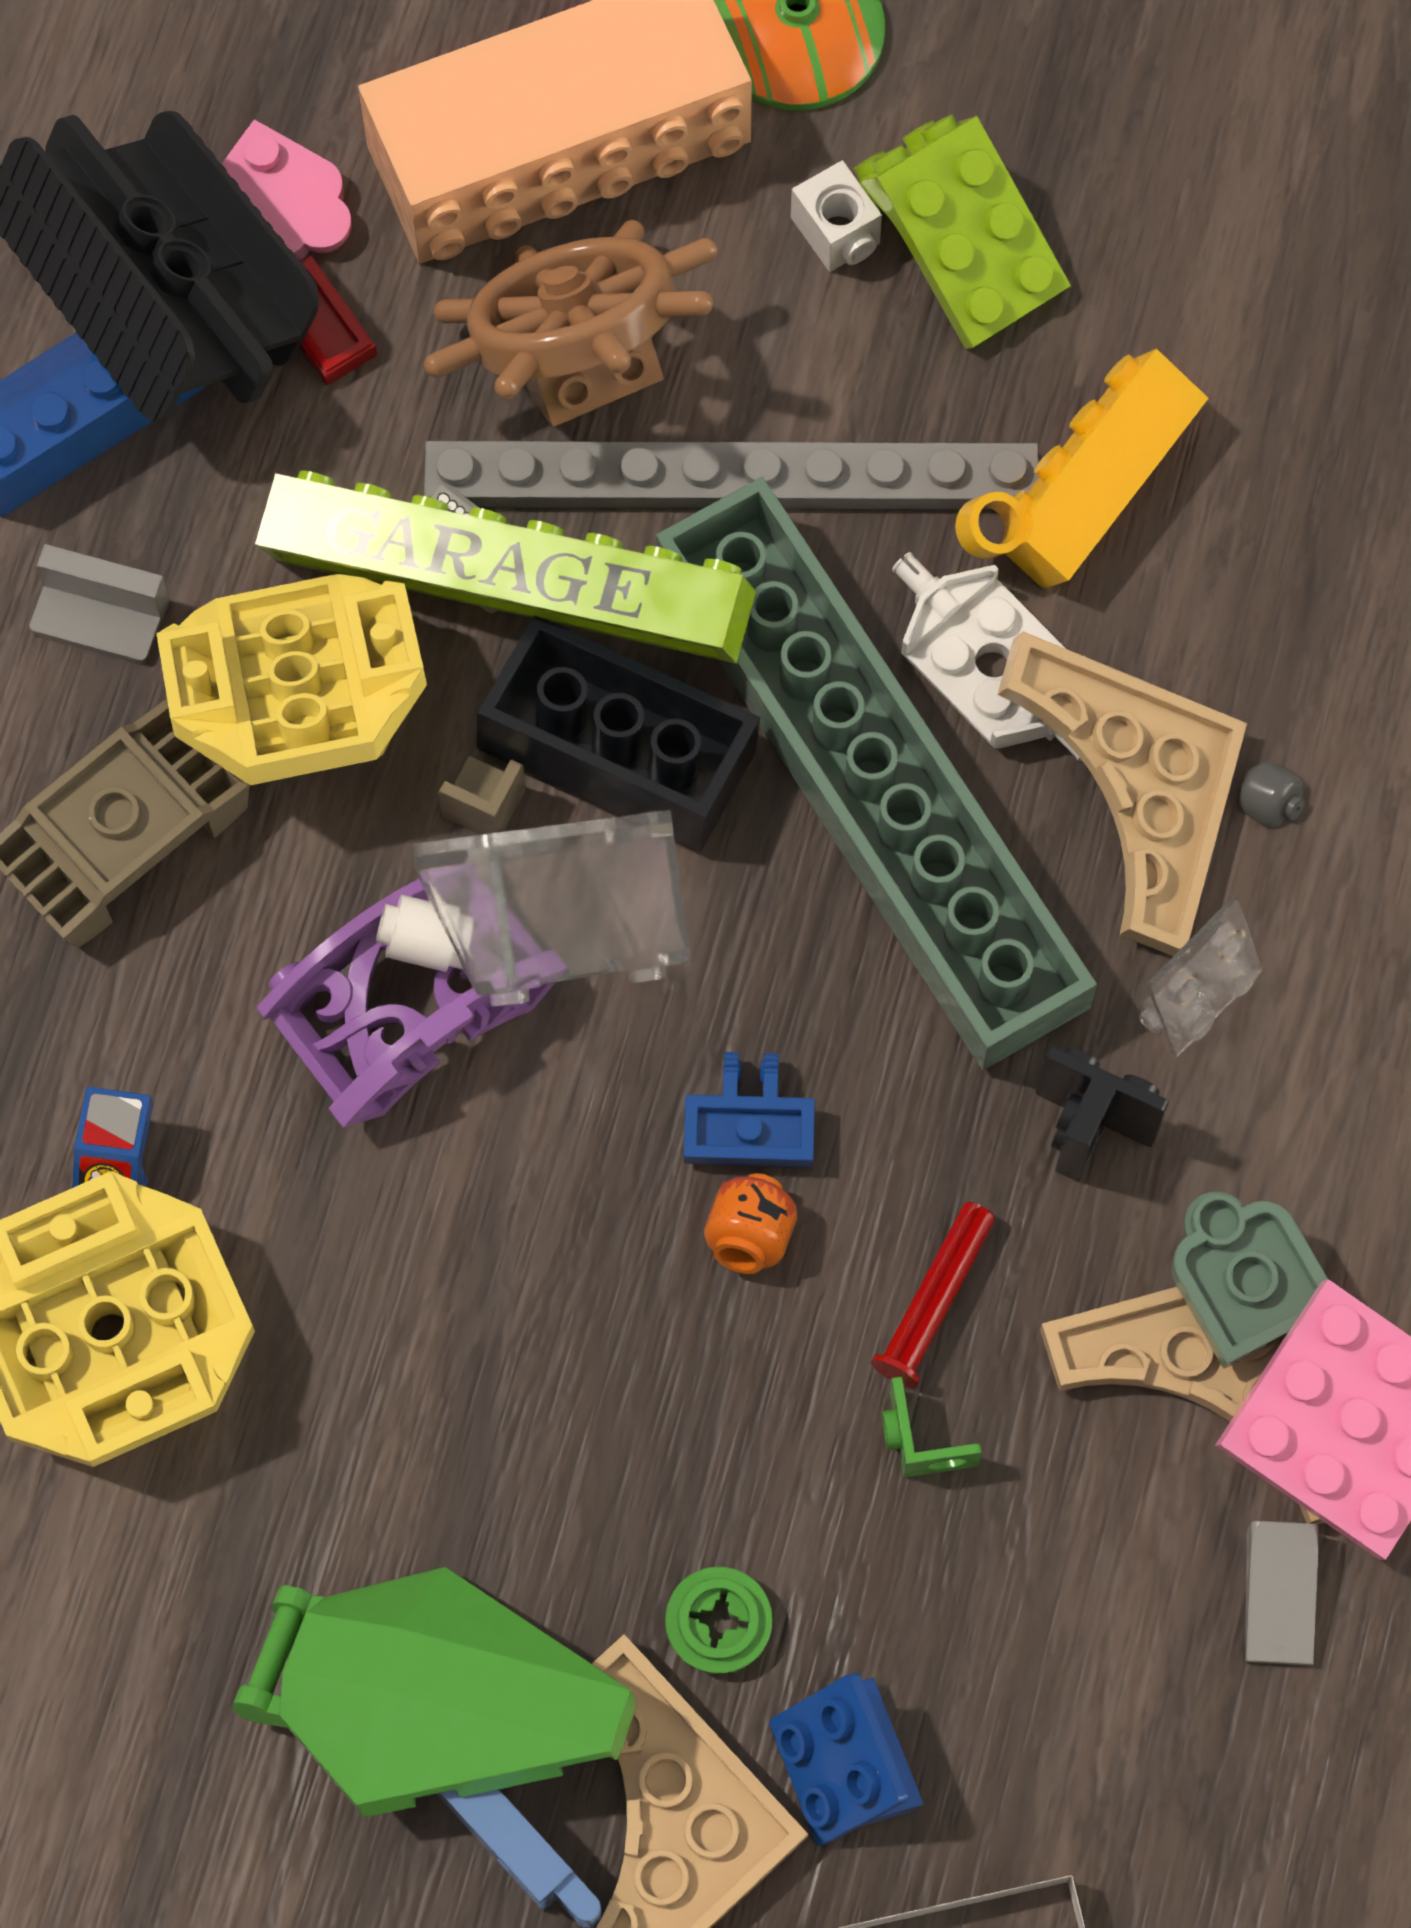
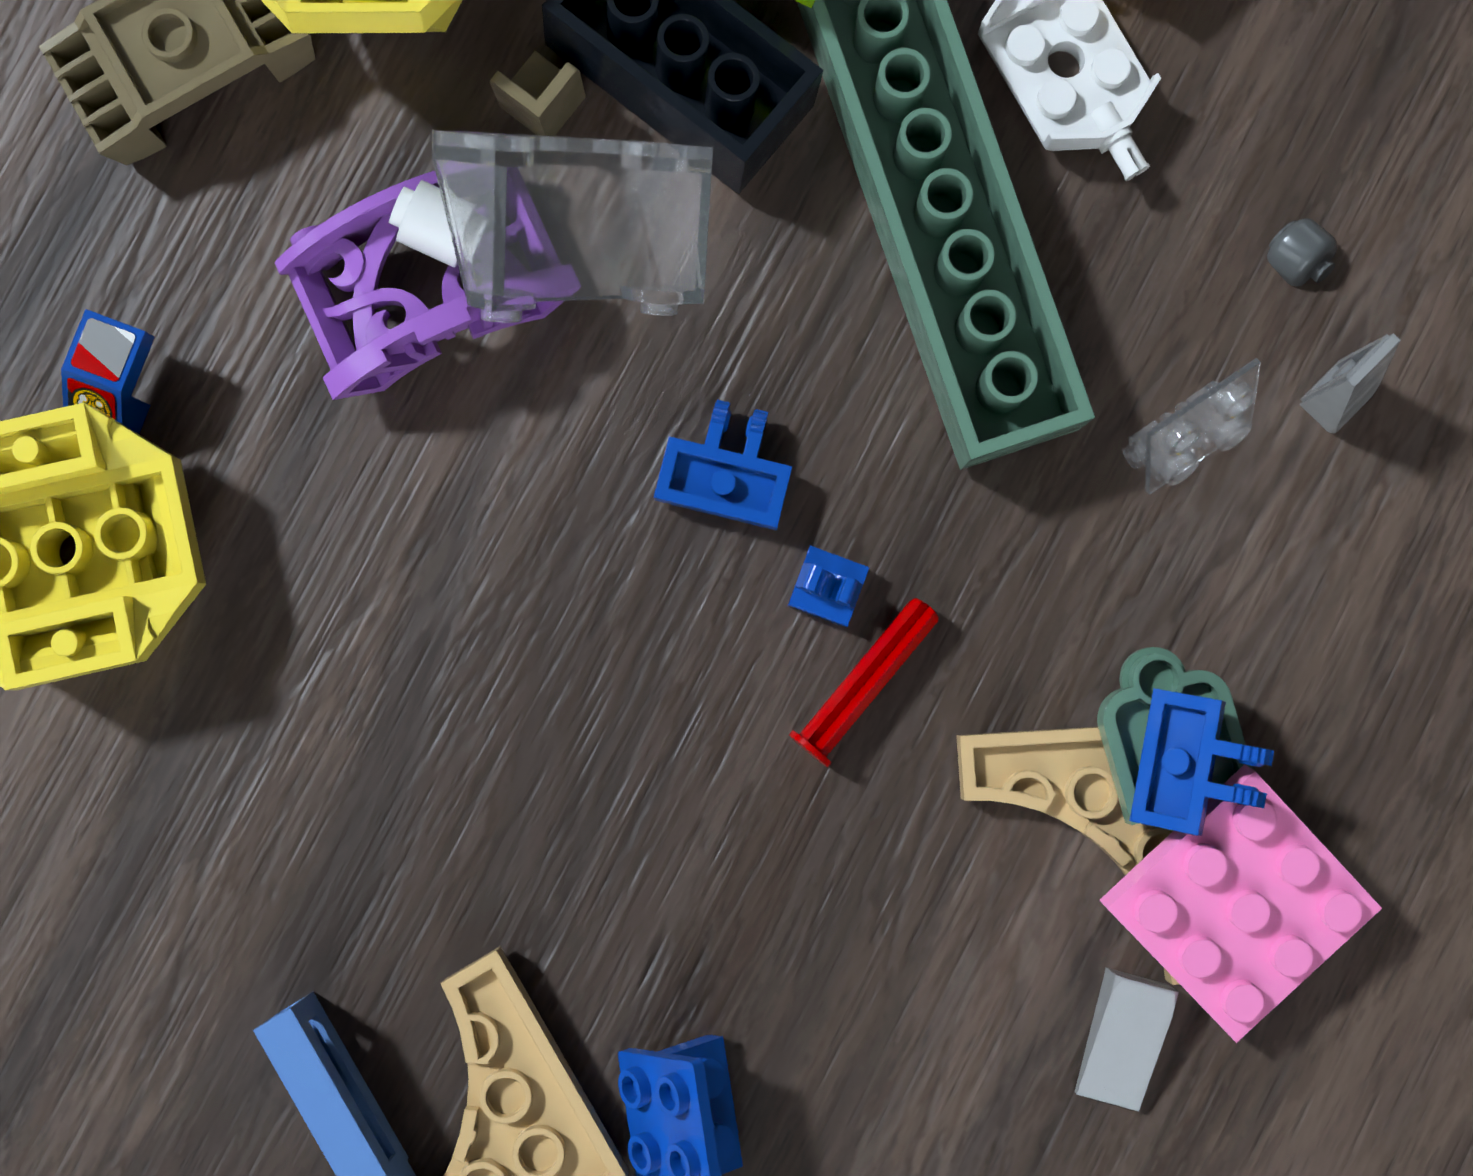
camera: 15 degrees right, 15 degrees up
(429, 1692) = (297, 976): bright green windscreen -> none
(699, 1596) = (562, 960): bright green gear -> none
(750, 1223) = (703, 576): orange head -> none
(877, 1211) = (828, 586): none -> blue tile
(899, 1436) = (798, 814): bright green bracket -> none
(1095, 1101) = (1063, 536): black bracket -> none
(1156, 762) = (1203, 202): tan plate -> none
(1254, 1285) = (1180, 763): none -> blue hinge
(1343, 908) = (1349, 384): none -> light grey slope

